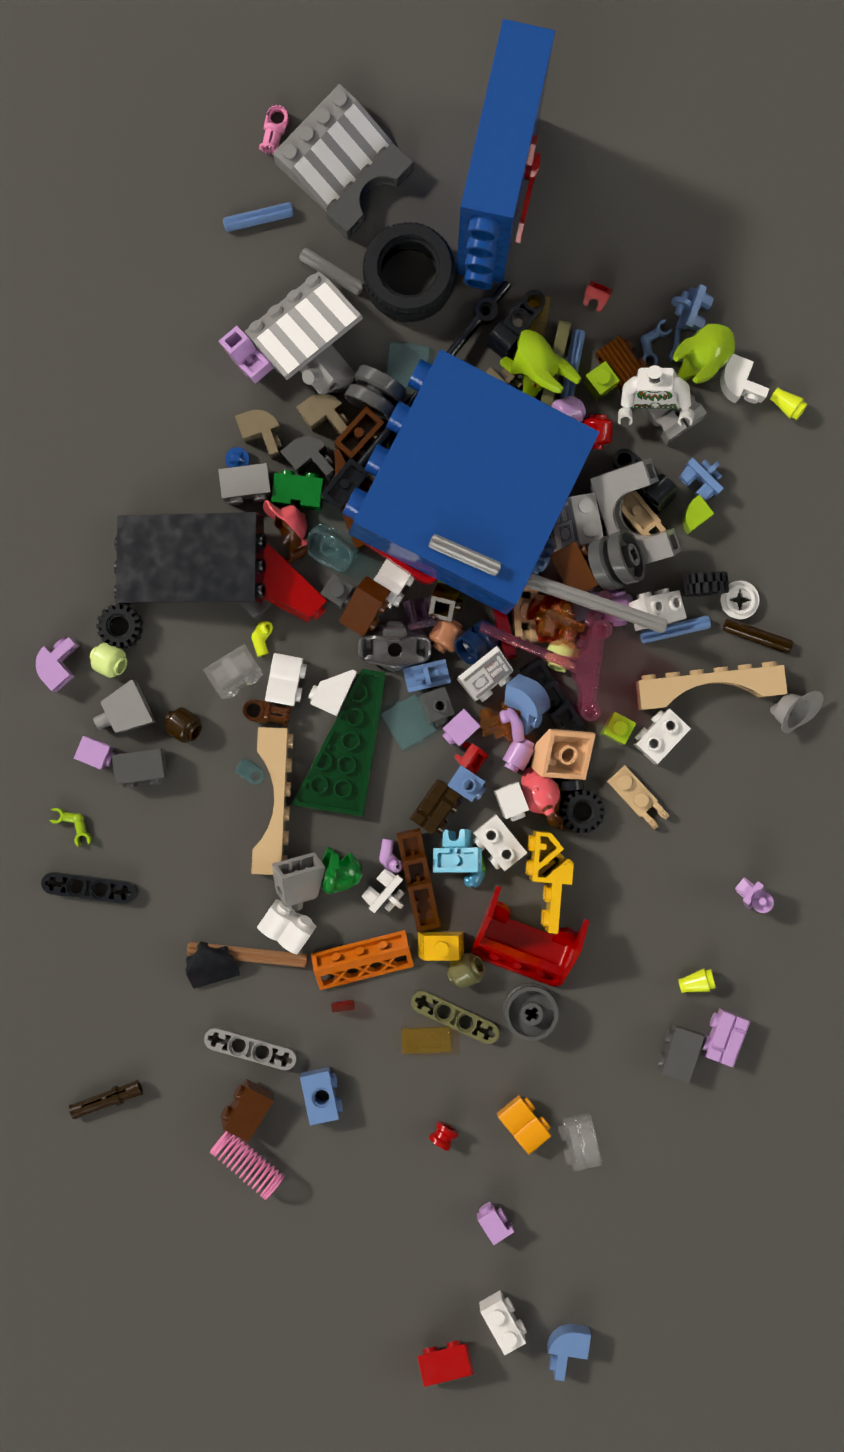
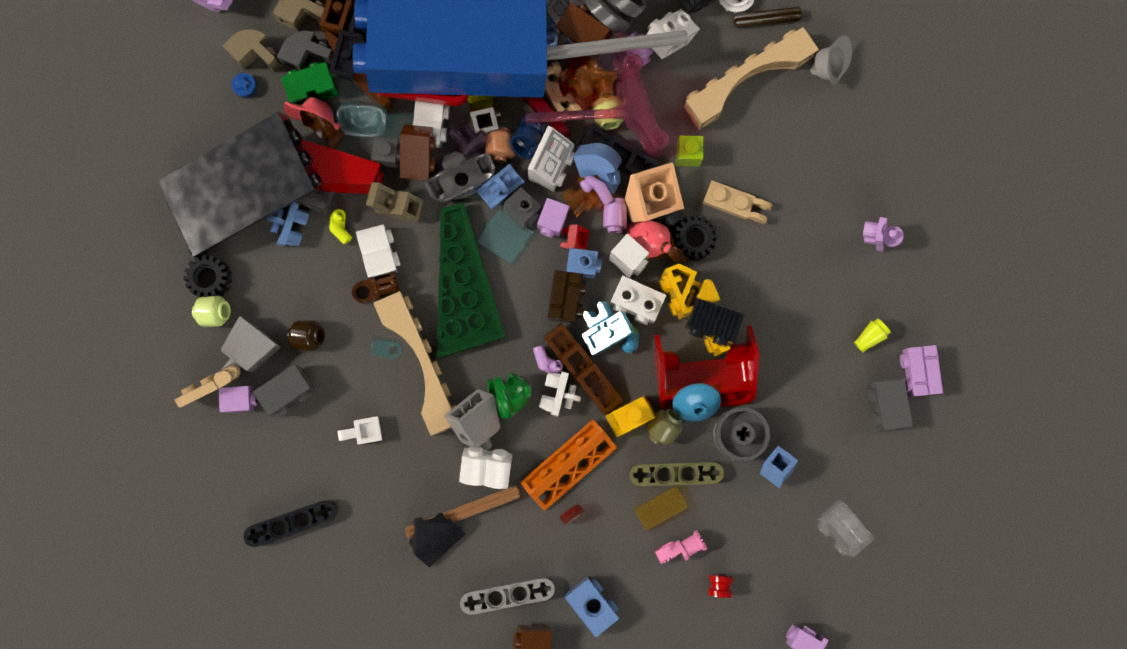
camera: 30 degrees left, 5 degrees down
(51, 666) = (160, 339): lavender brick -> none
(73, 728) = (208, 385): none -> tan hinge
(78, 821) = (250, 467): lime arm -> none
(194, 839) = (365, 431): none -> white plate
(209, 622) = (287, 236): none -> medium blue hips
(233, 672) = (328, 266): clear brick -> none
(245, 483) = (259, 99): light grey brick -> none
(322, 643) = (394, 203): none -> dark tan brick
(332, 692) = (425, 241): white slope -> none
(431, 1087) = (686, 547): none -> bright pink connector
(465, 554) = (479, 51): light grey axle -> none
(505, 963) = (697, 402): none -> dark azure dish
(524, 1124) = (786, 538): light orange brick -> none
(550, 1058) = (778, 466): none -> medium blue brick
(554, 903) = (714, 322): none -> black brick
(661, 735) = (730, 139): white brick -> none
(676, 629) = (694, 46): medium blue axle -> none

